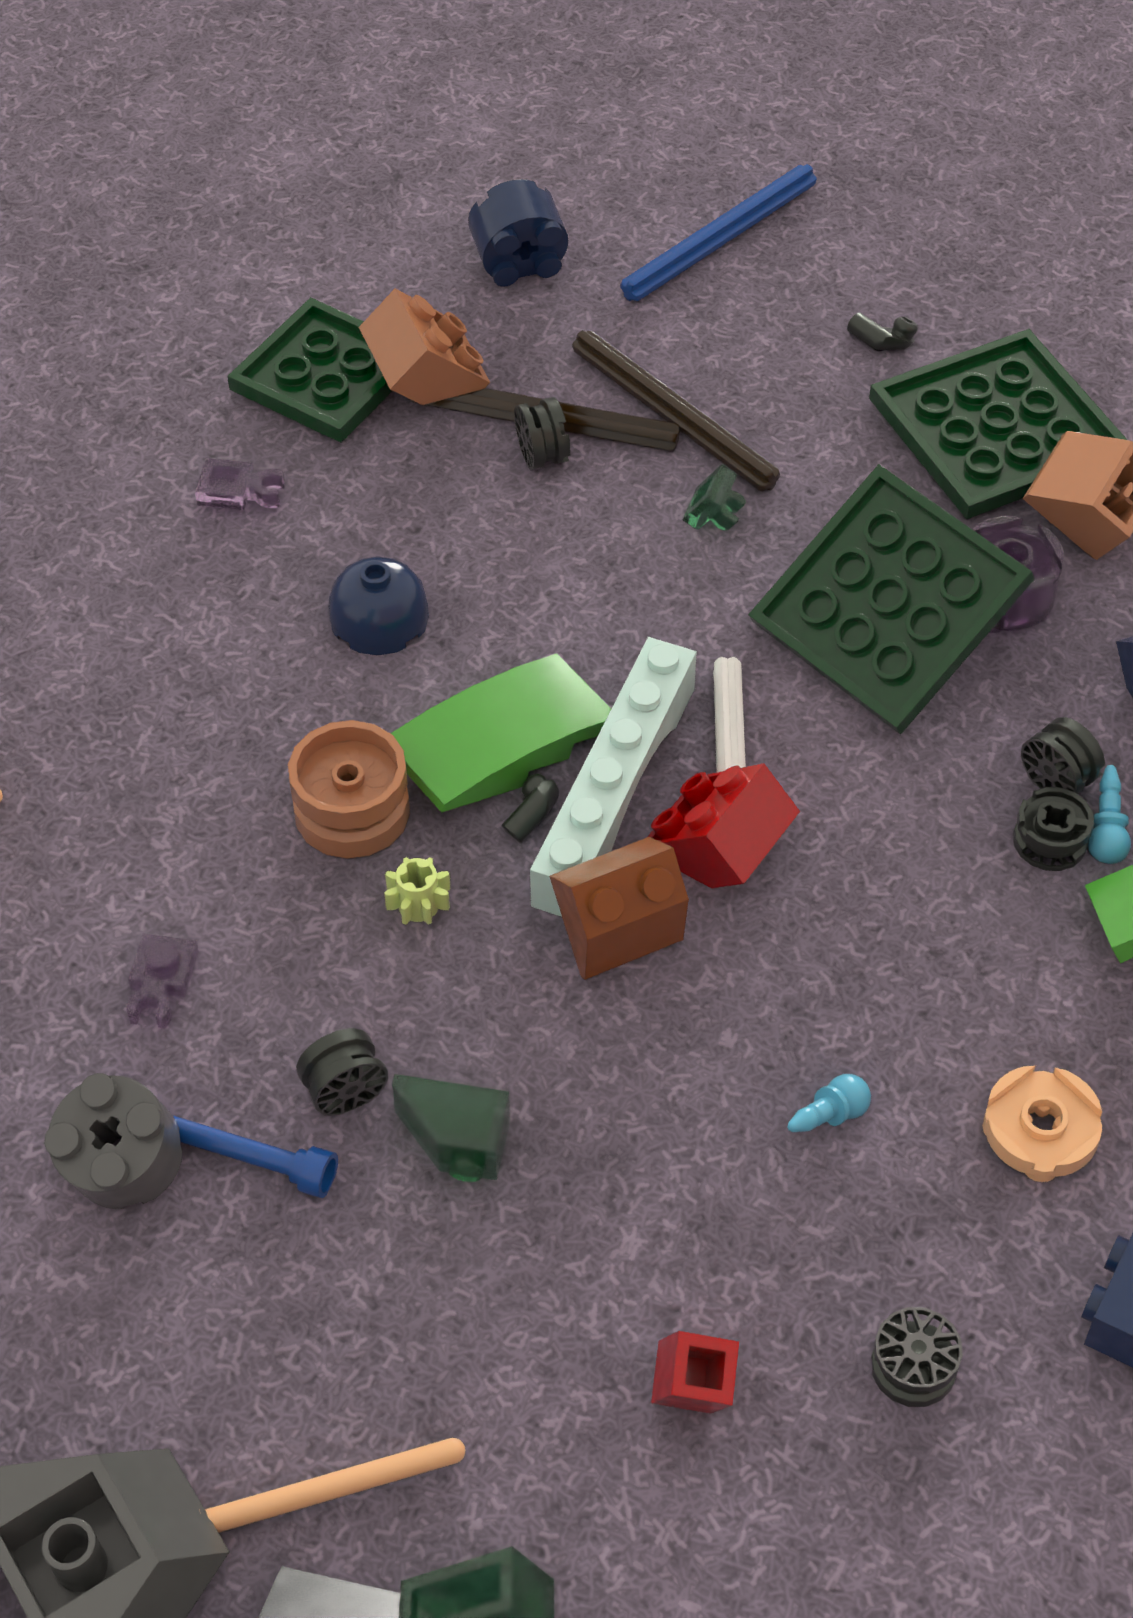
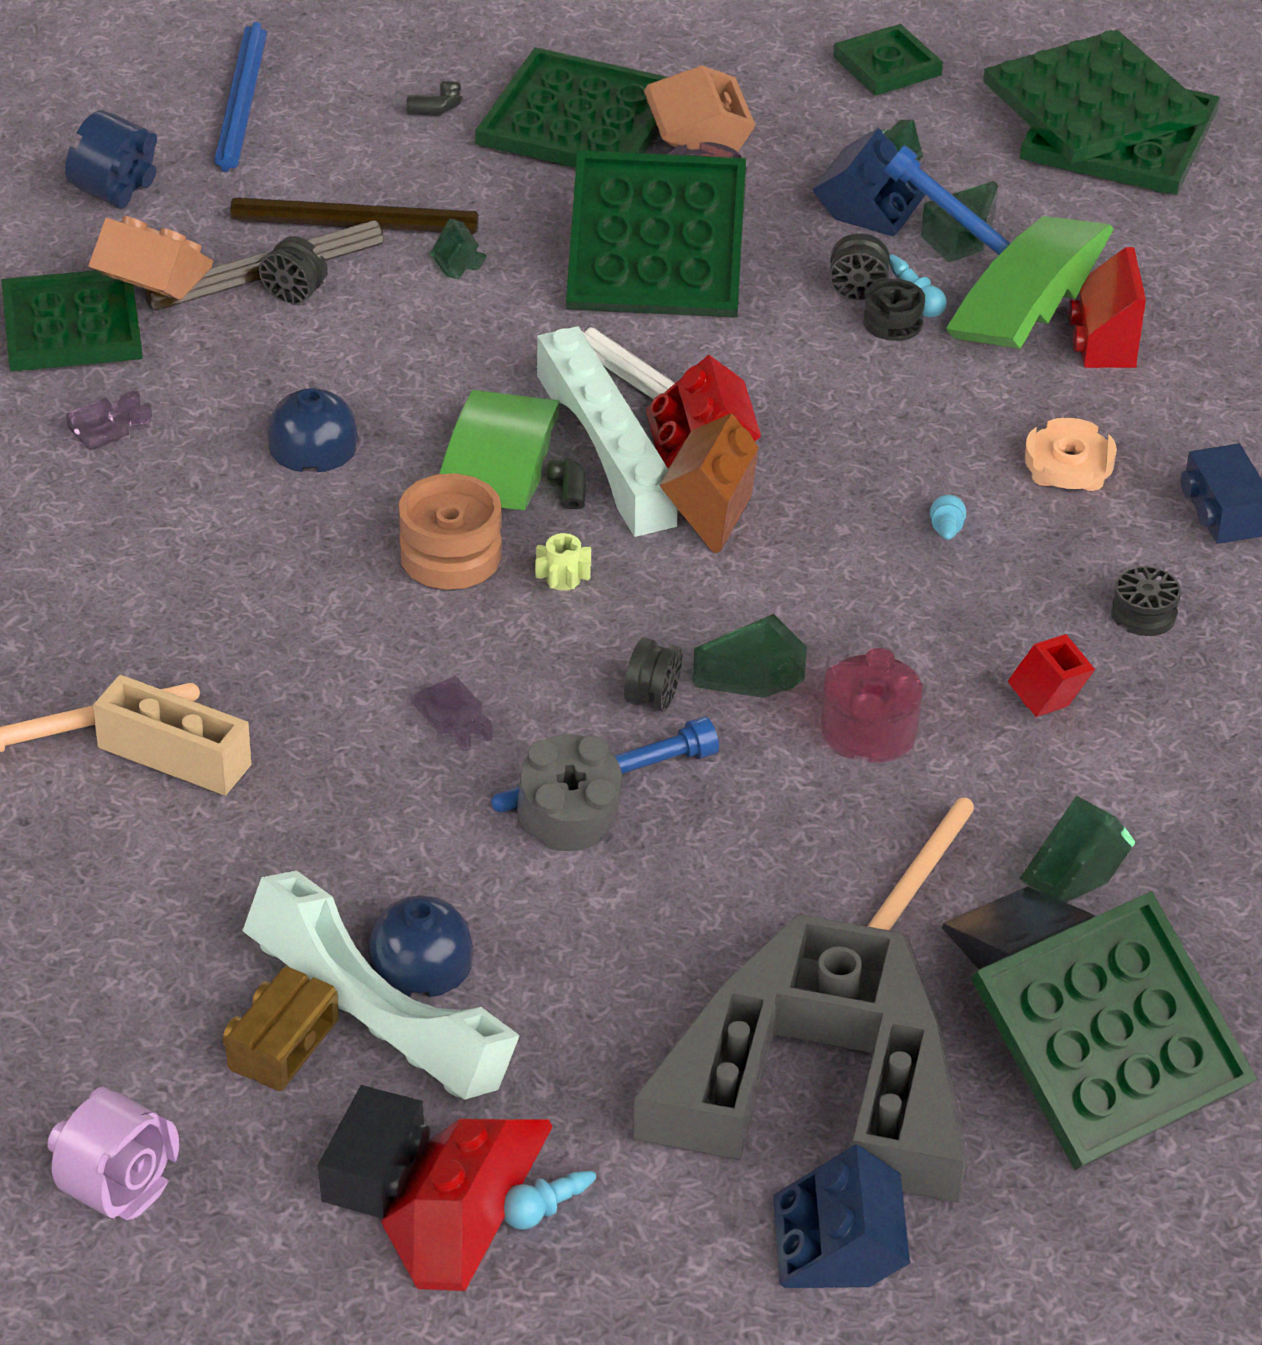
camera: 45 degrees left, 10 degrees down
(490, 1265) = (871, 706): none -> clear pink brick

